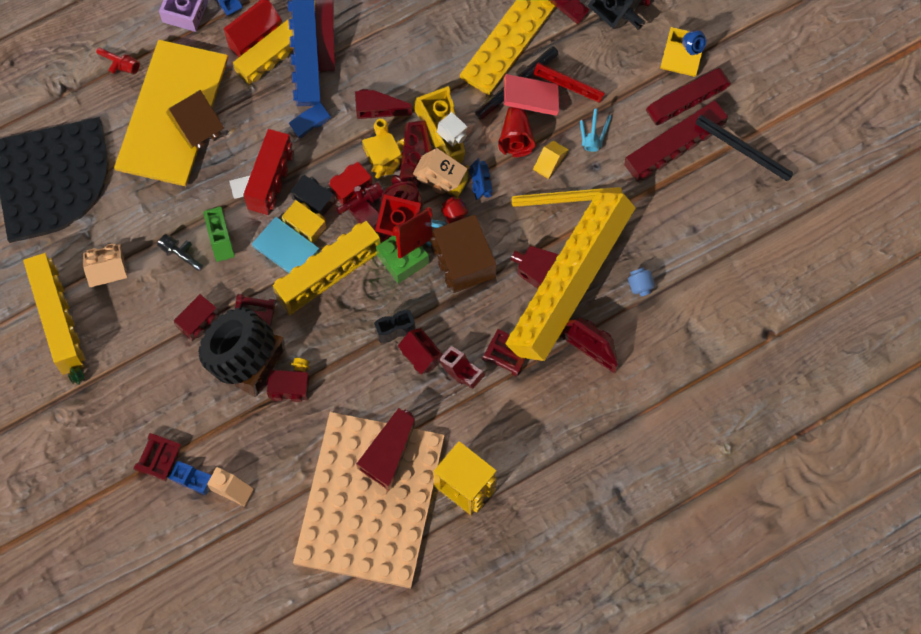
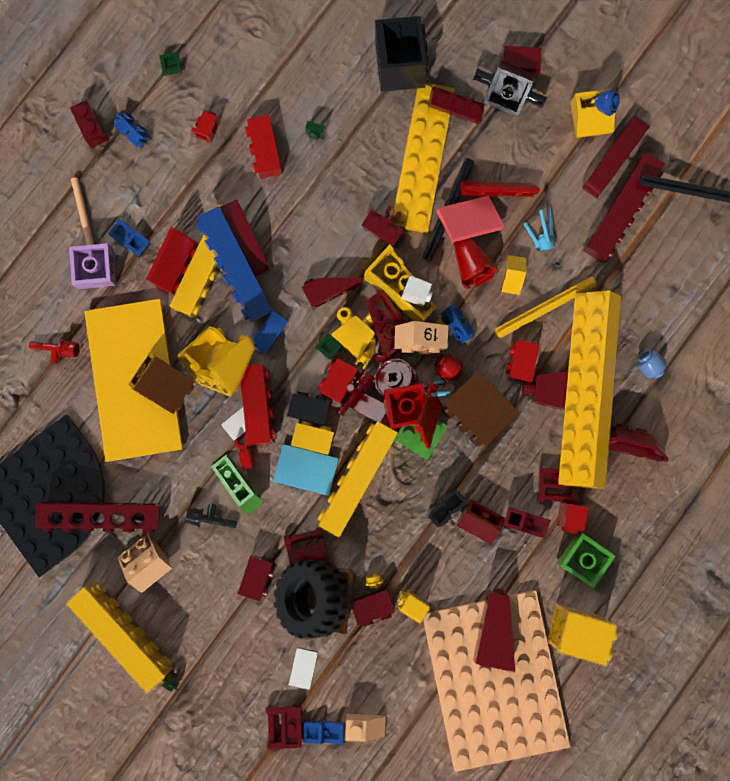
camera: 25 degrees left, 15 degrees up
(45, 181) = (46, 522): none -> dark red brick
(199, 416) = (303, 669): none -> white sticker
(237, 213) = (245, 455): none -> red bar
(251, 118) = (217, 361): none -> yellow windscreen
(324, 395) = (413, 605): none -> yellow brick
(356, 152) = (328, 346): none -> dark green plate
(451, 72) = (382, 227): none -> dark red brick
(501, 422) = (585, 559): none -> bright green brick
(505, 379) = (572, 517): none -> red brick
(524, 232) = (522, 361): none -> red brick

